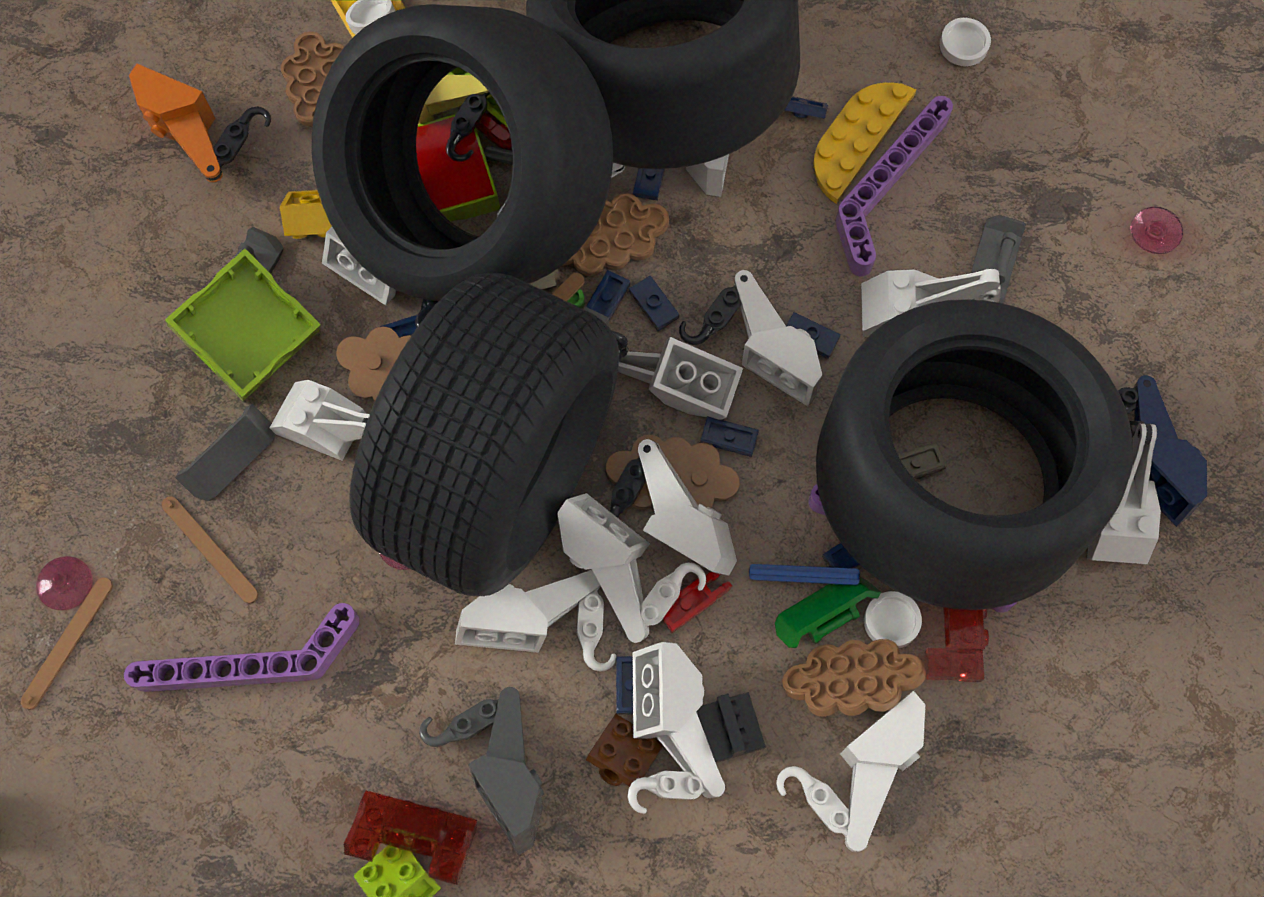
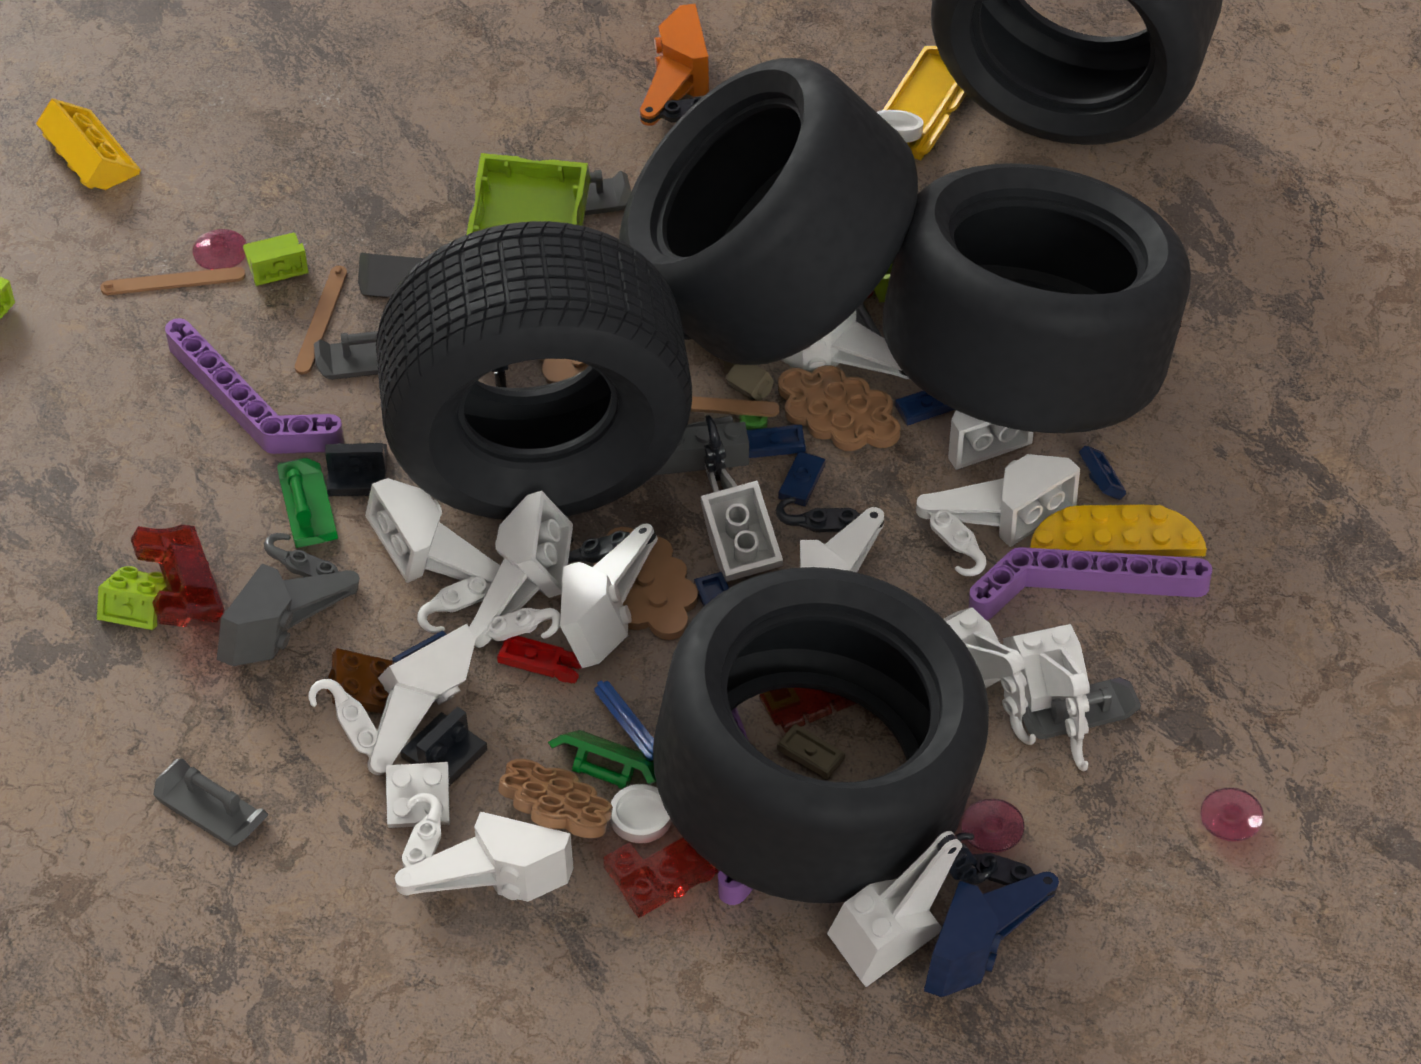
camera: 55 degrees right, 20 degrees down
(116, 545) = (276, 258): none -> lime bracket
(282, 535) = (347, 359): none -> dark grey piece
(395, 619) = (355, 468): none -> black bracket
(402, 681) = (306, 502): none -> green piece
(757, 776) = (410, 780): none -> white plate
(795, 185) = (1017, 503): none -> white slope
(962, 248) = (1053, 672): none -> white slope
(965, 42) = (1298, 559): white piece -> none

